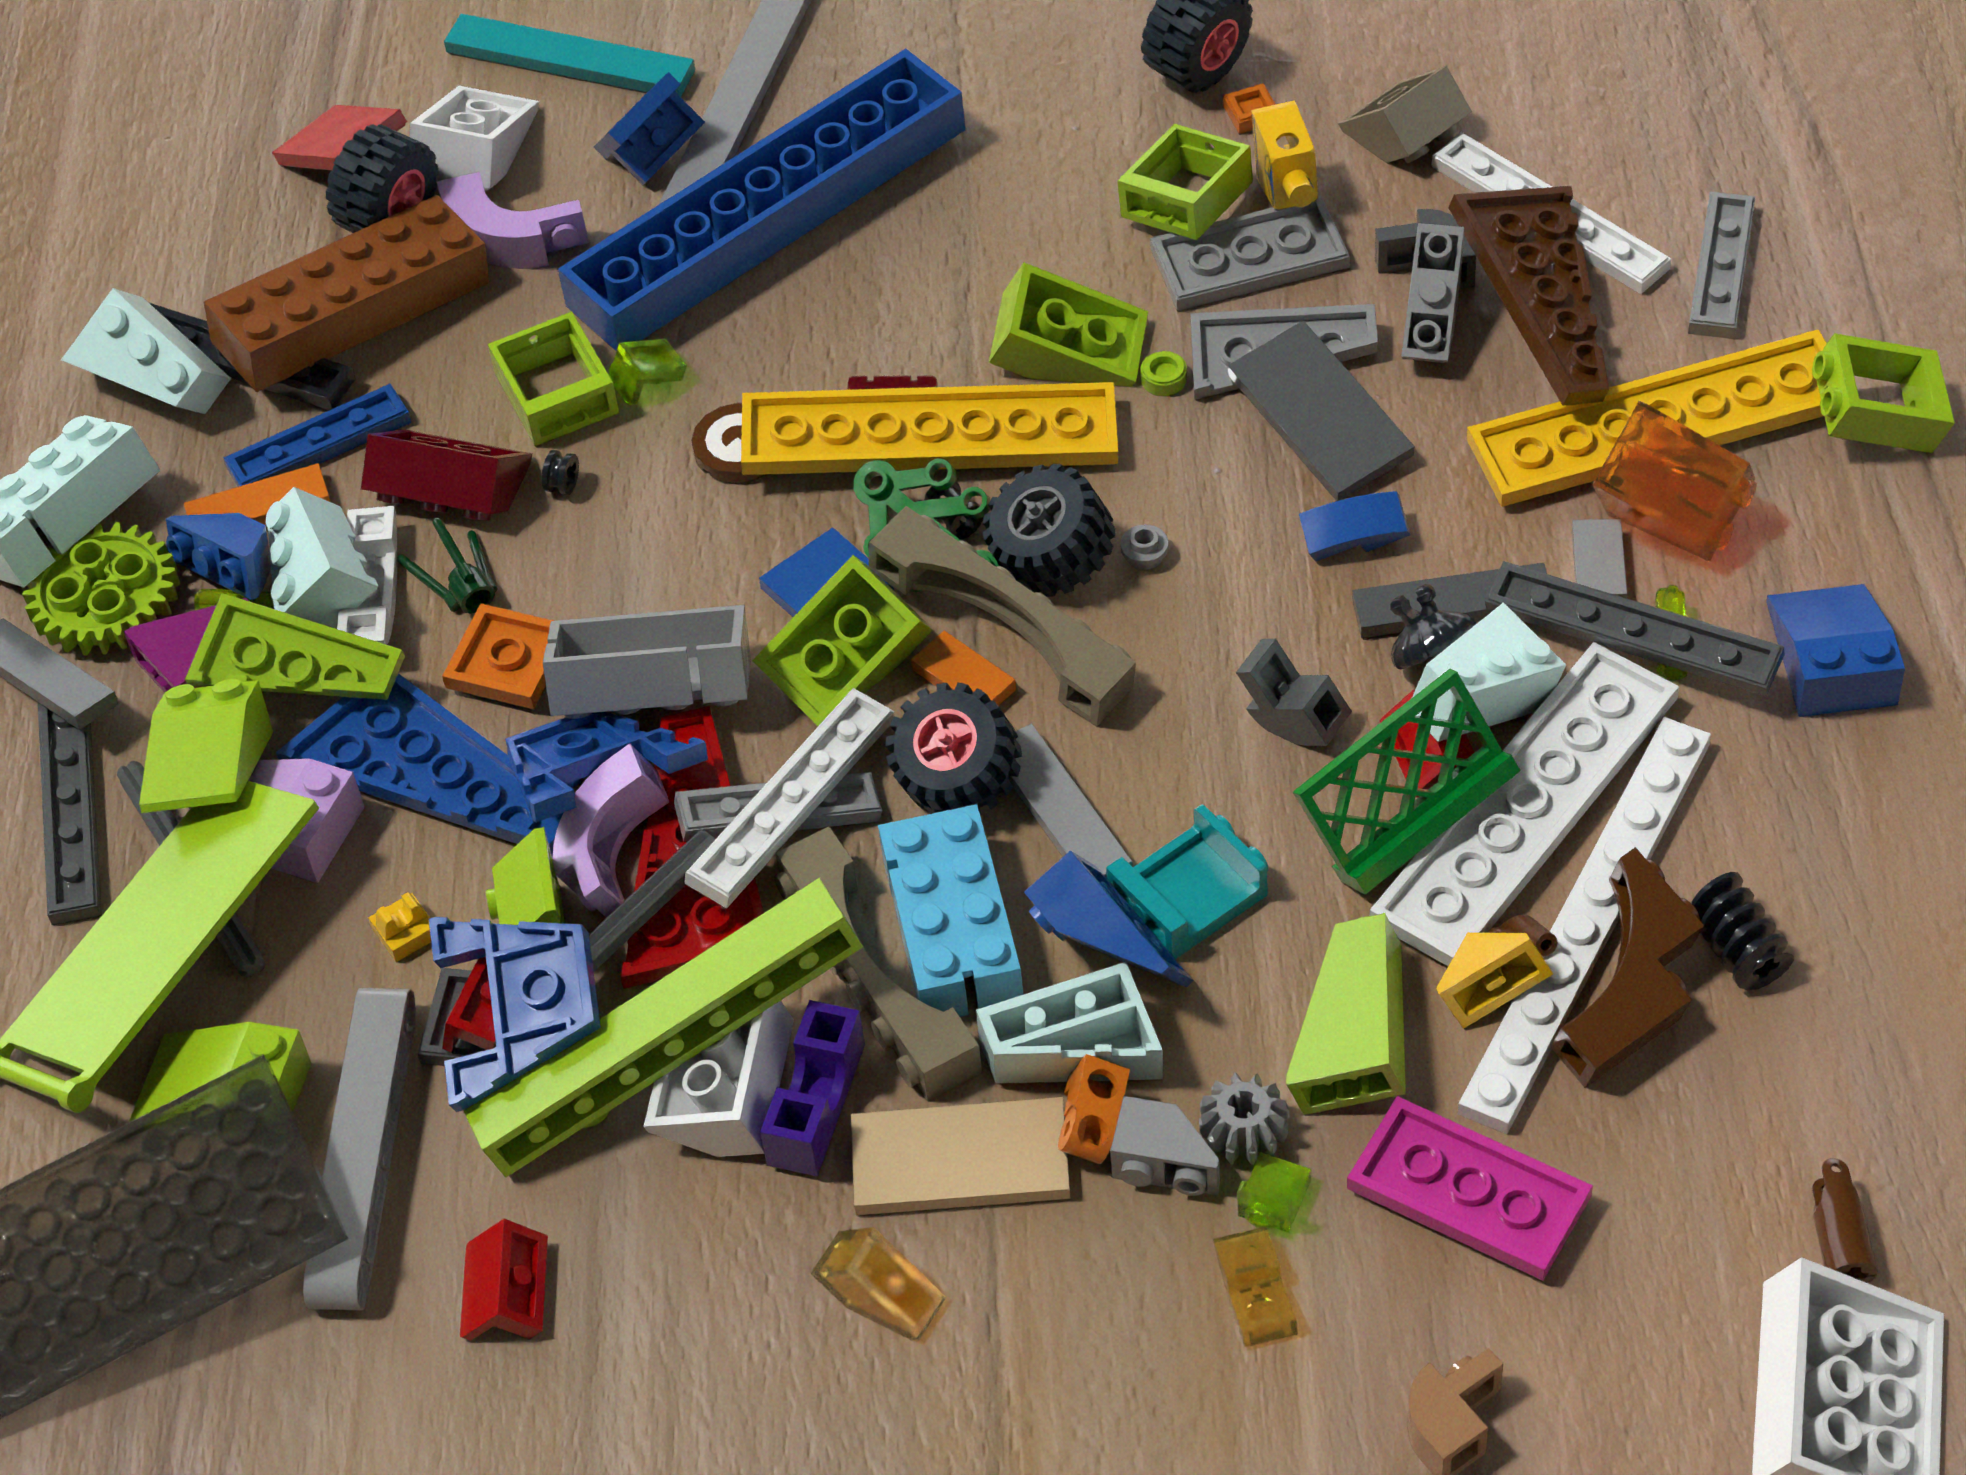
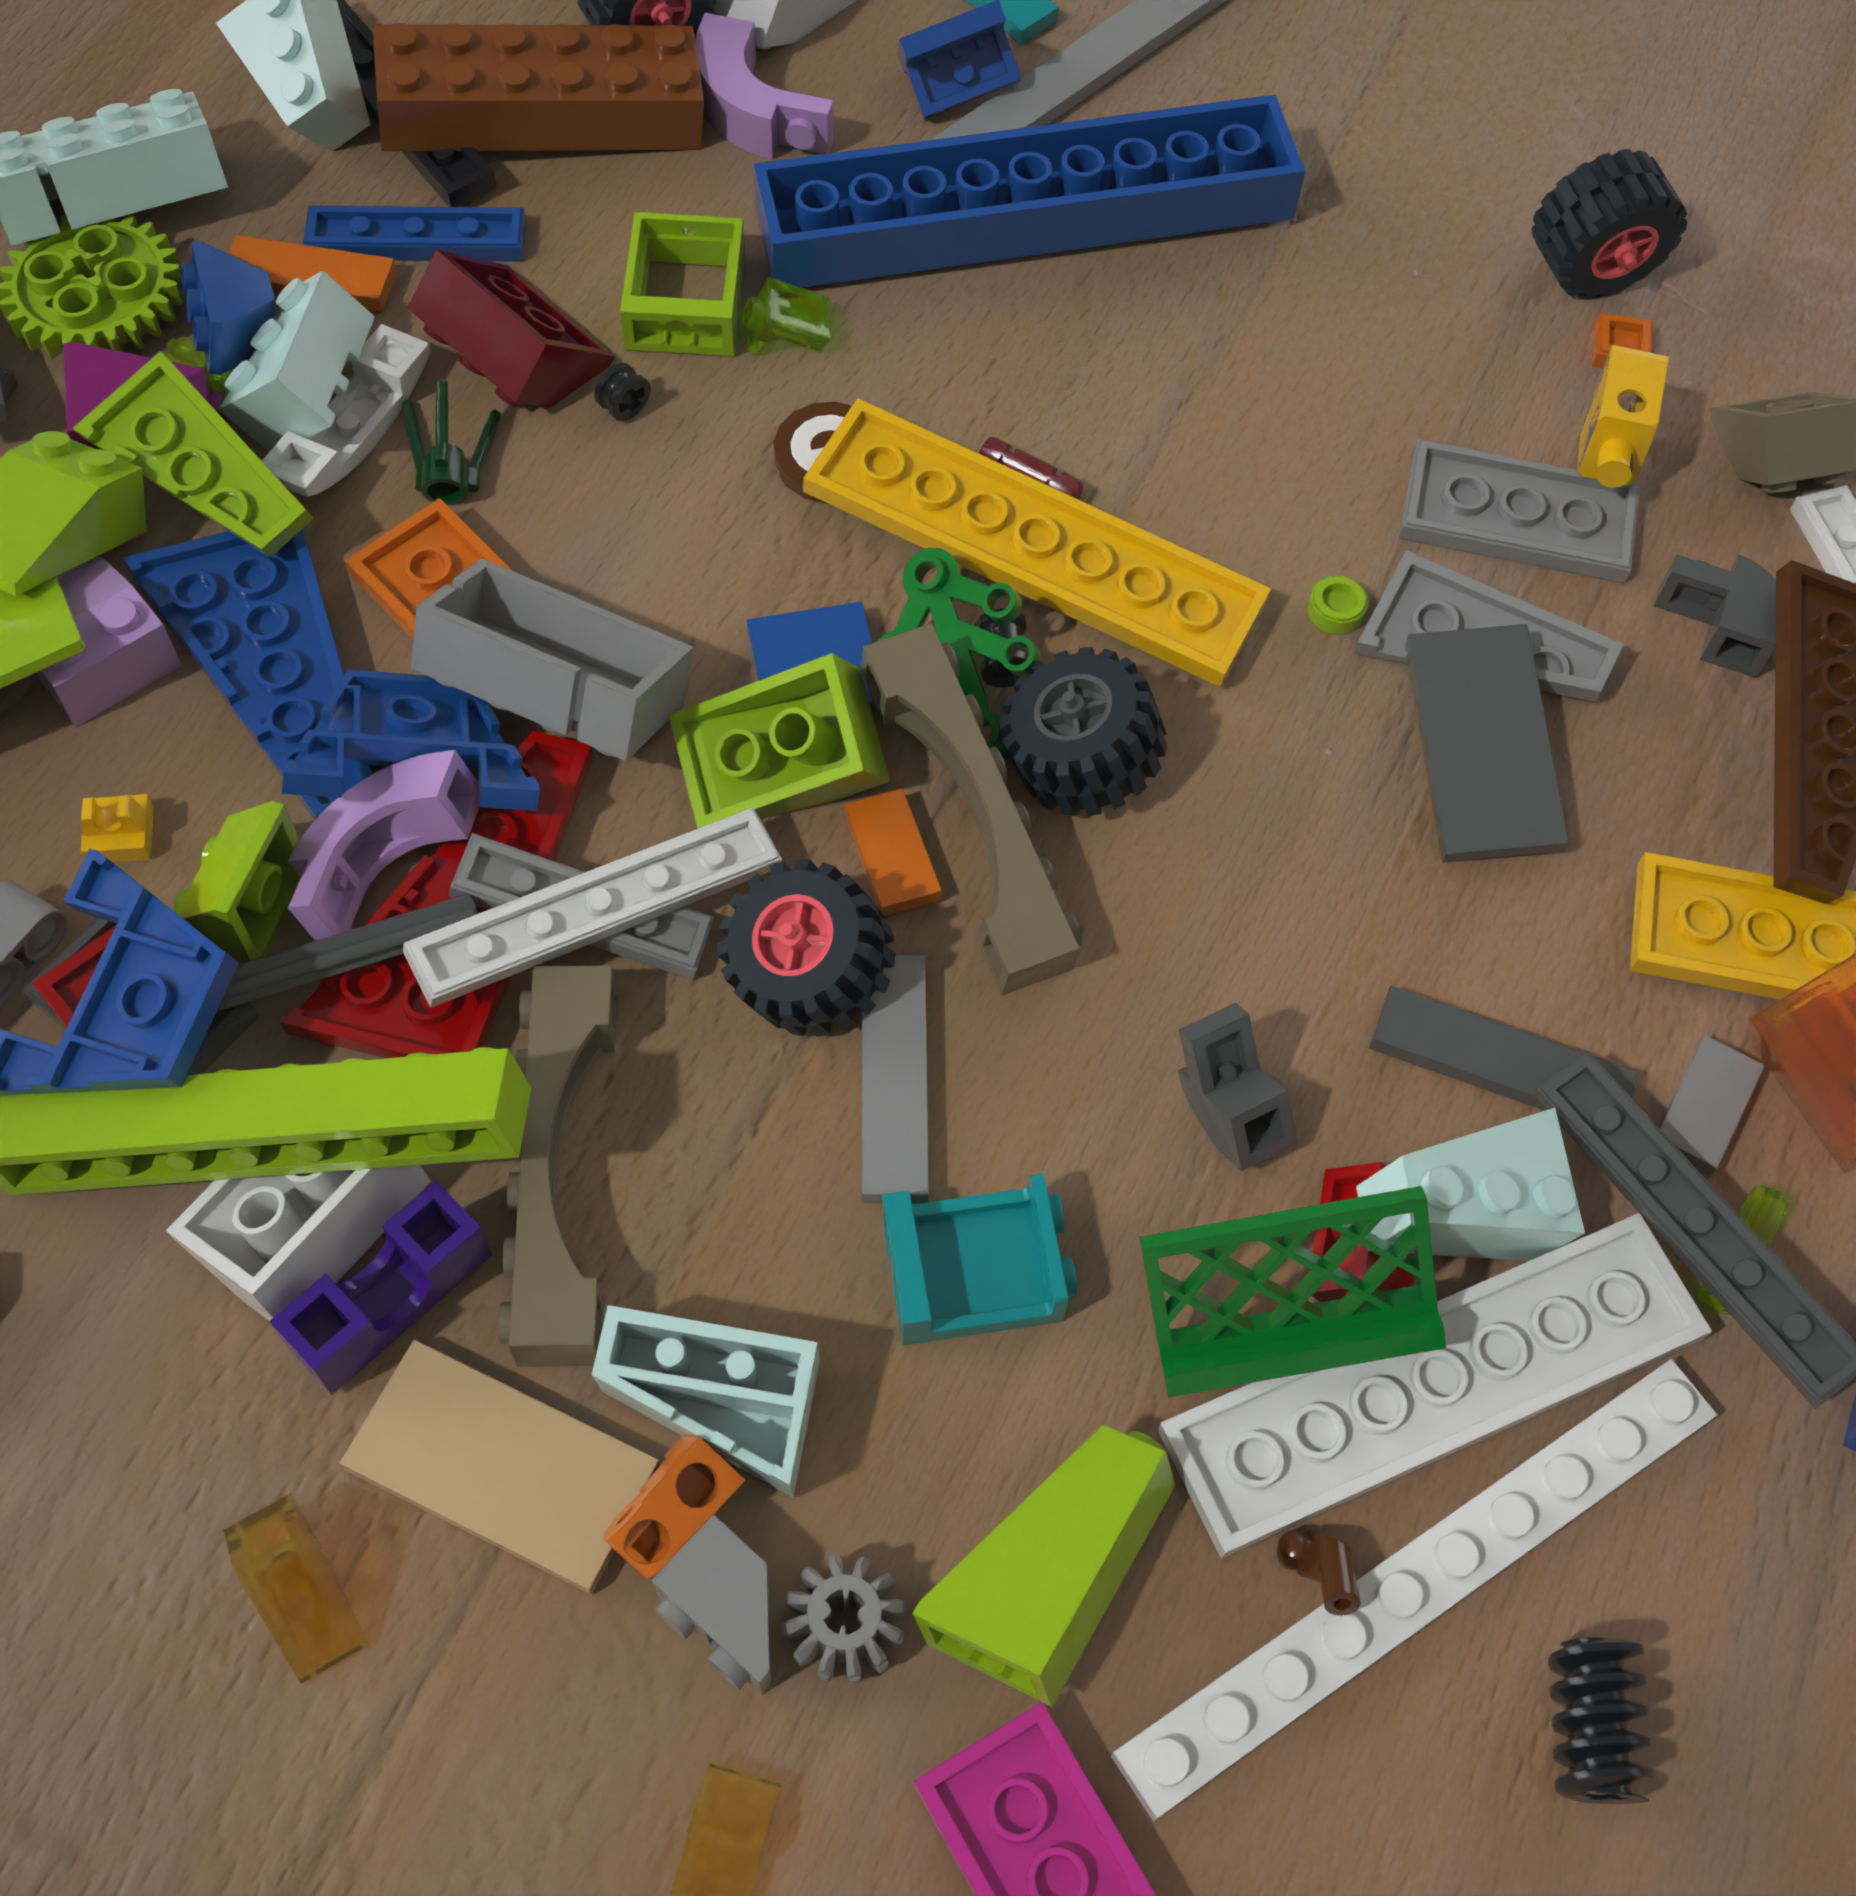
camera: 20 degrees right, 10 degrees up
(950, 909) = (679, 1148): medium azure piece -> none
(1066, 331) = (1258, 503): lime slope -> none
(1084, 905) = (832, 1266): blue slope -> none
(1144, 546) = (1185, 816): light grey plate -> none
(1154, 202) = (1443, 399): lime window -> none
(1273, 1193) = (821, 1739): clear neon green bracket -> none
(1355, 521) = (1441, 901): blue slope -> none
(1426, 630) = (1443, 1094): black hair -> none
(1433, 293) = (1699, 667): light grey slope -> none
(1489, 973) = (1250, 1599): yellow slope -> none
(1642, 993) = (1419, 1739): reddish brown arch -> none

